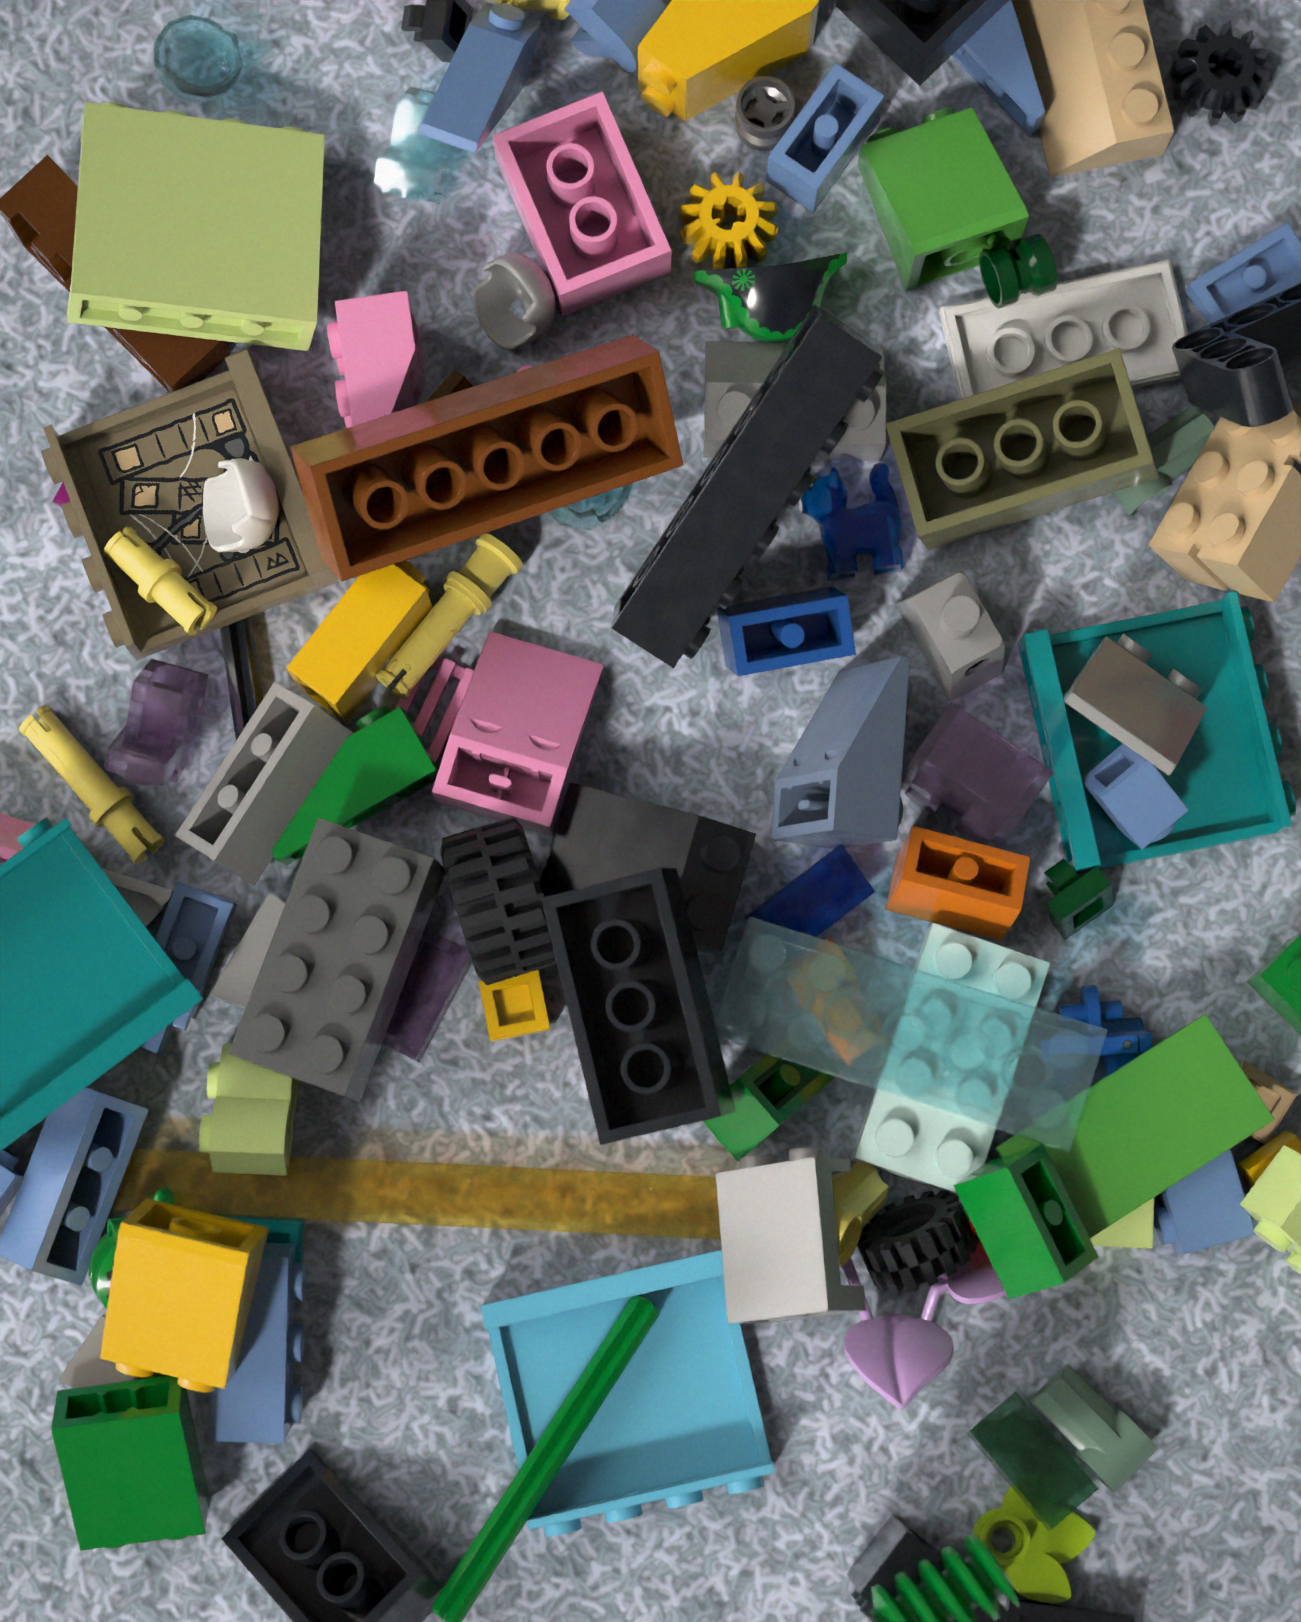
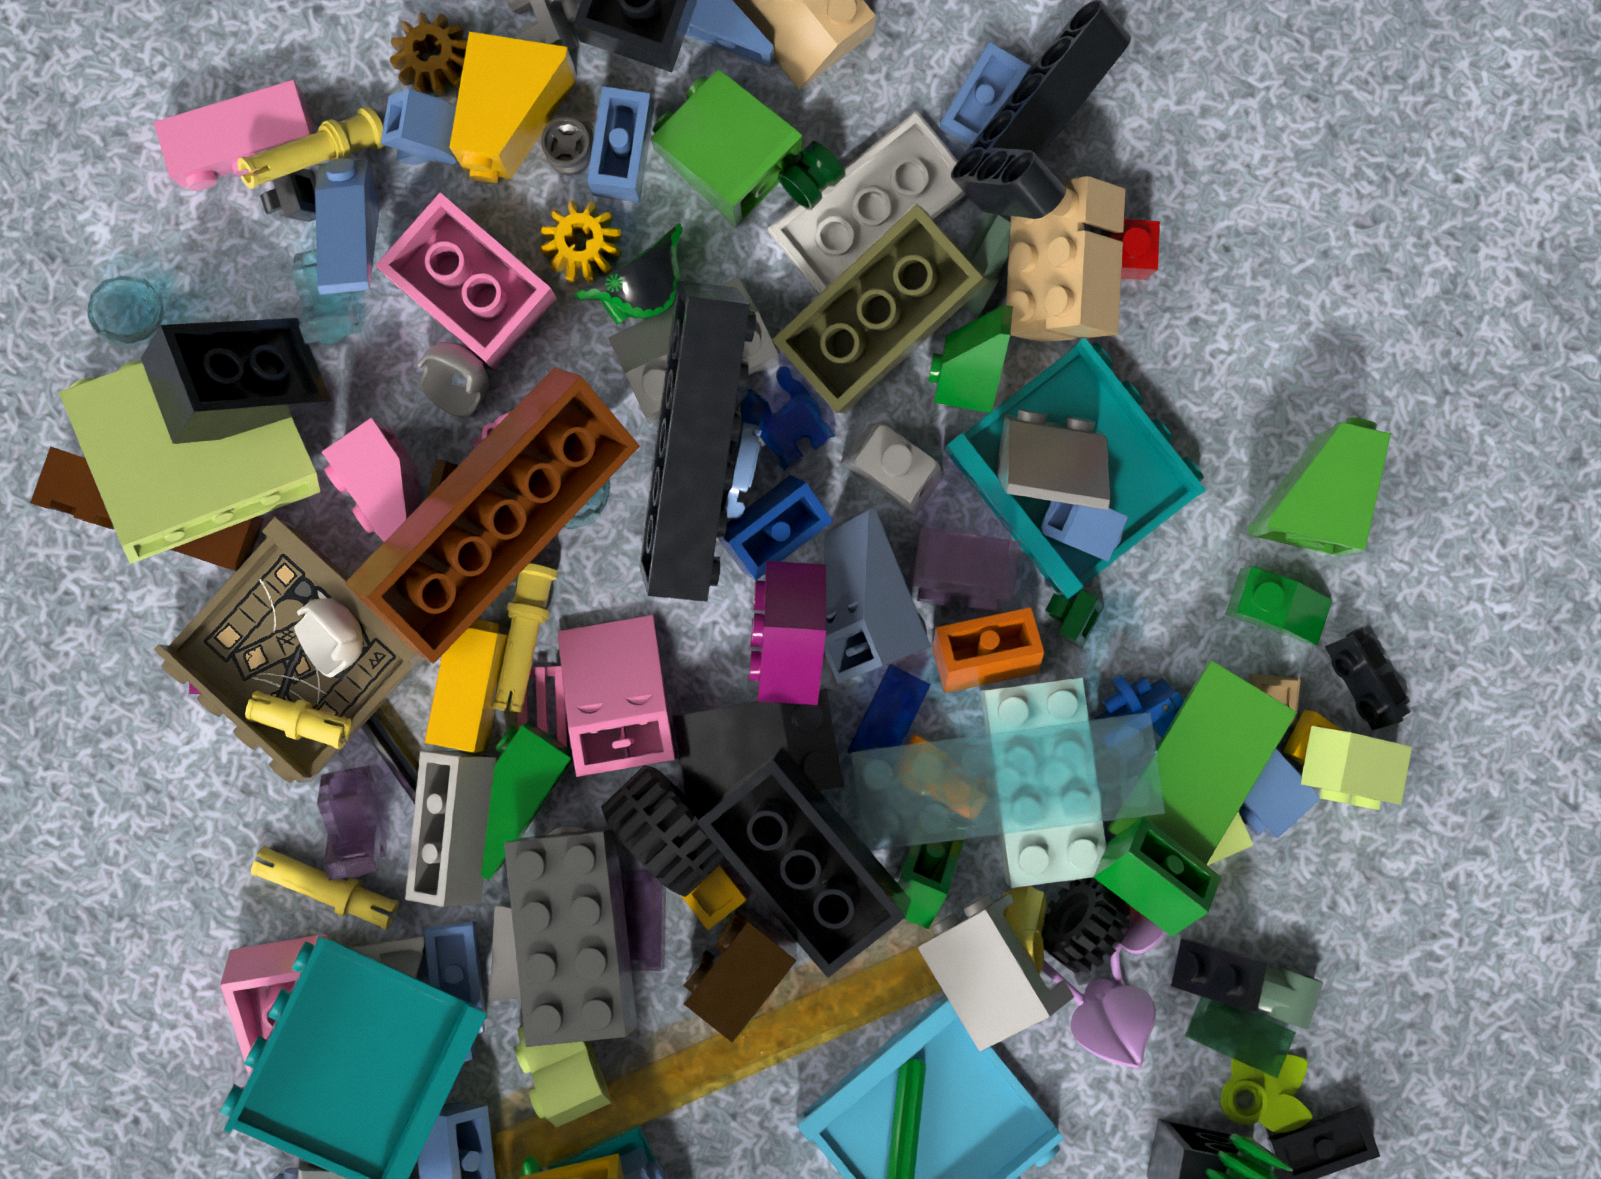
camera: 30 degrees left, 5 degrees up
(278, 175) = (231, 376): none -> black slope
(503, 1094) = (741, 974): none -> dark brown brick
(745, 748) = (789, 632): none -> magenta brick
(781, 550) = (745, 459): none -> light blue tile
(1042, 1376) = (1219, 975): none -> black plate
(1096, 558) = (972, 362): none -> green slope

